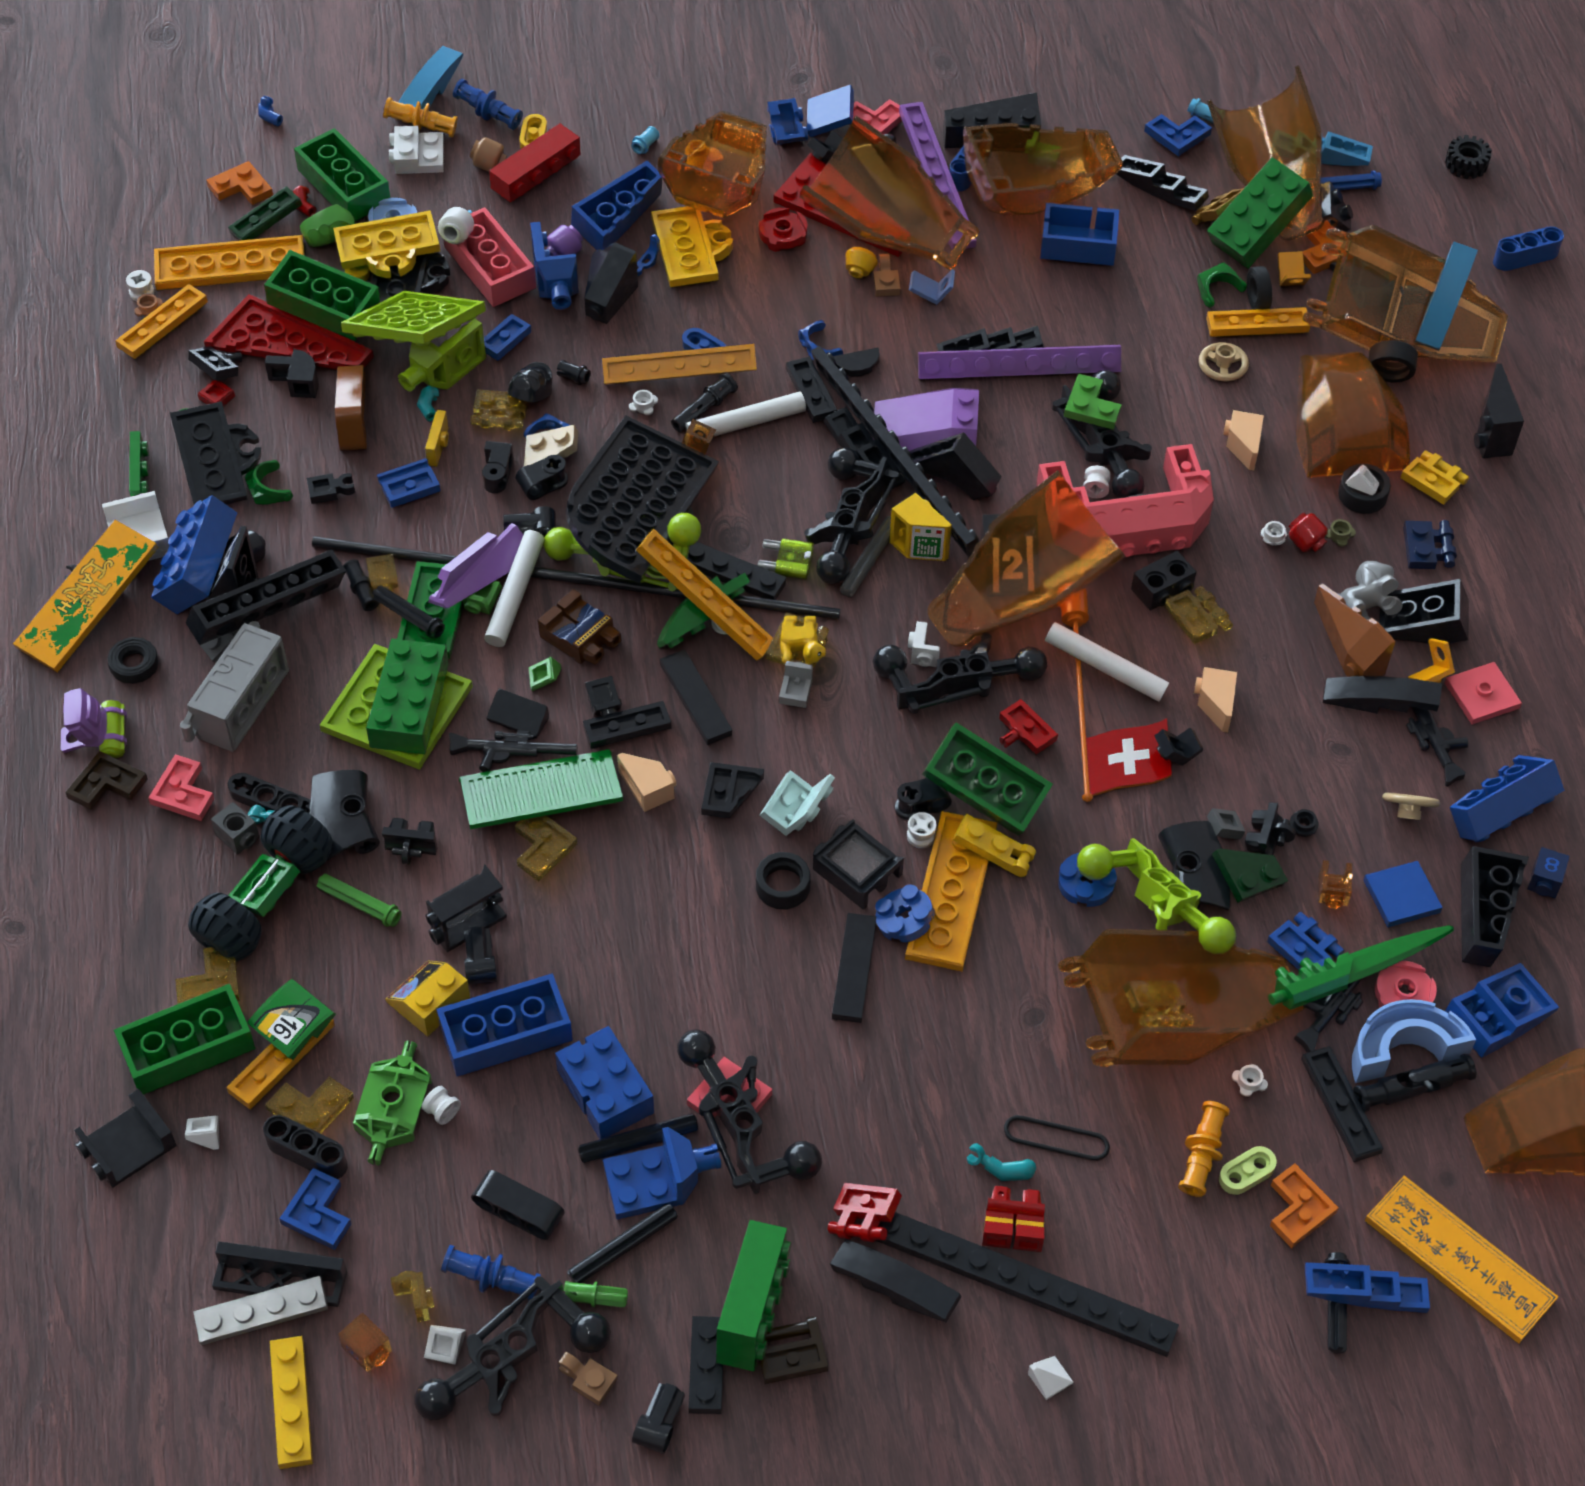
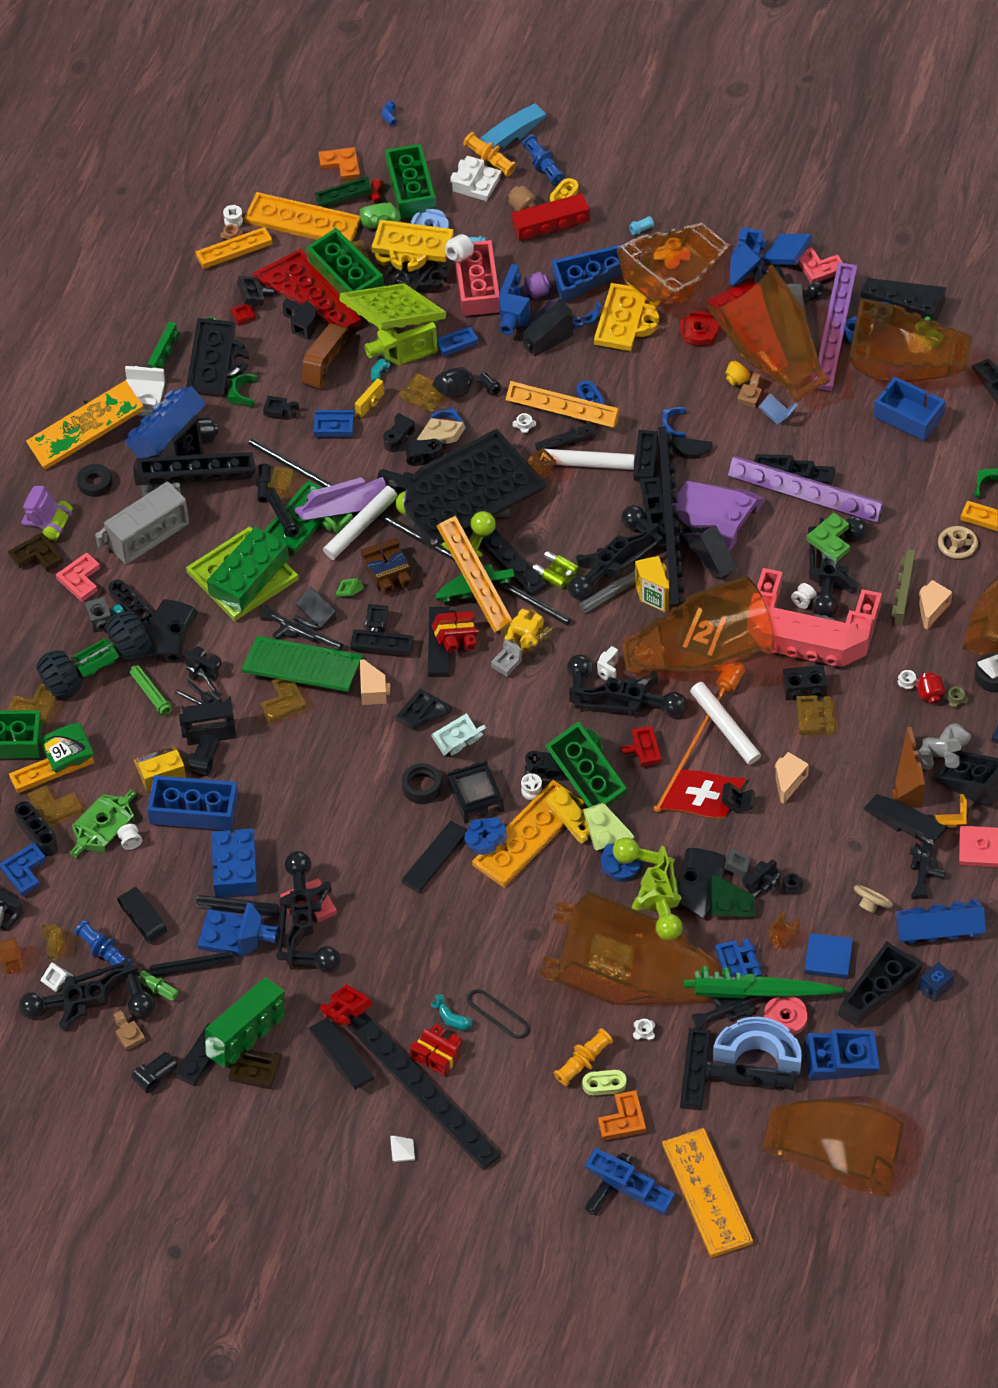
camera: 30 degrees right, 0 degrees up
(444, 879) = (207, 697): none -> black plant
(713, 673) = (454, 630): none -> red hips
(793, 139) = (742, 263): none -> blue slope
(1046, 843) = (604, 826): none -> yellowish green wing
(1203, 431) = (901, 594): none -> olive plate

